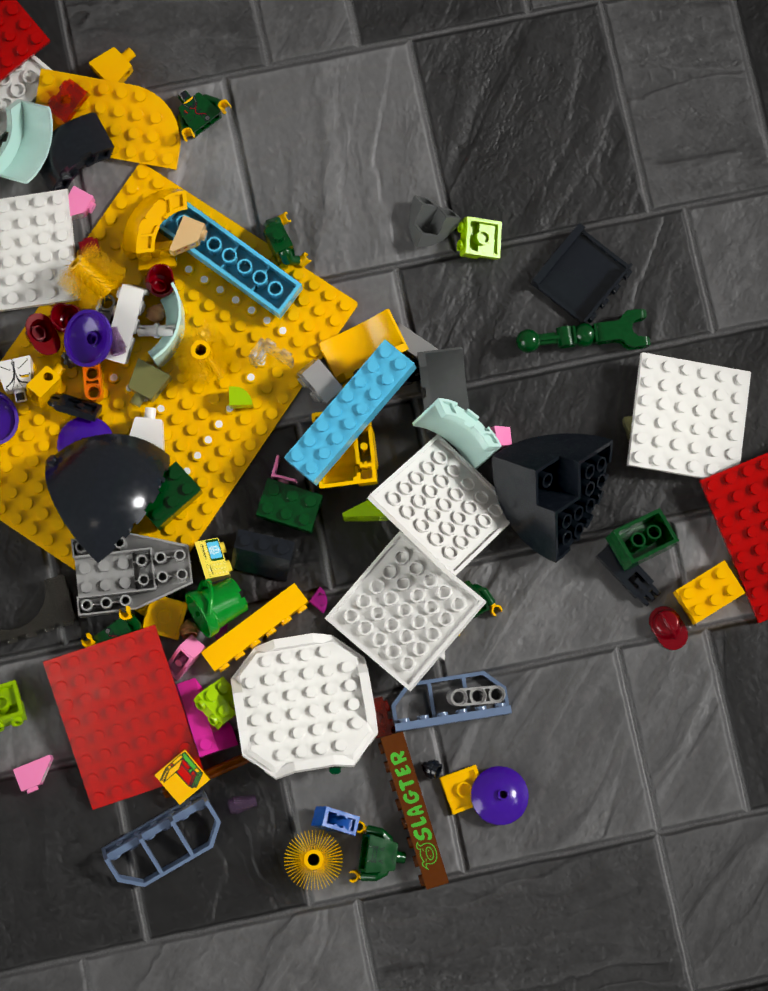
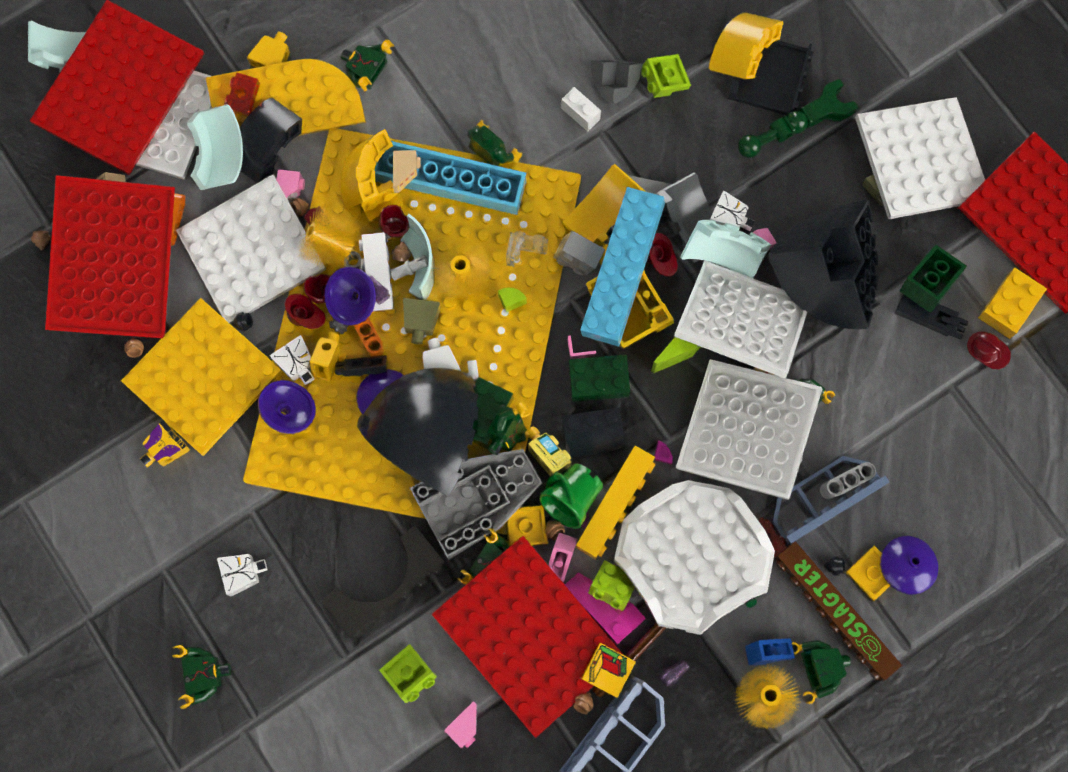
camera: 20 degrees left, 5 degrees down
(80, 229) = (299, 206): none -> medium nougat plate
(149, 797) = (584, 703): none -> medium nougat plate
(176, 452) = (473, 369): none -> white arm
(184, 521) = (508, 428): none -> dark green torso
(384, 239) = (580, 109): none -> white brick
(398, 414) = (662, 255): none -> dark red piece
(480, 399) = (731, 211): none -> white torso
(565, 236) = (741, 45): none -> yellow panel

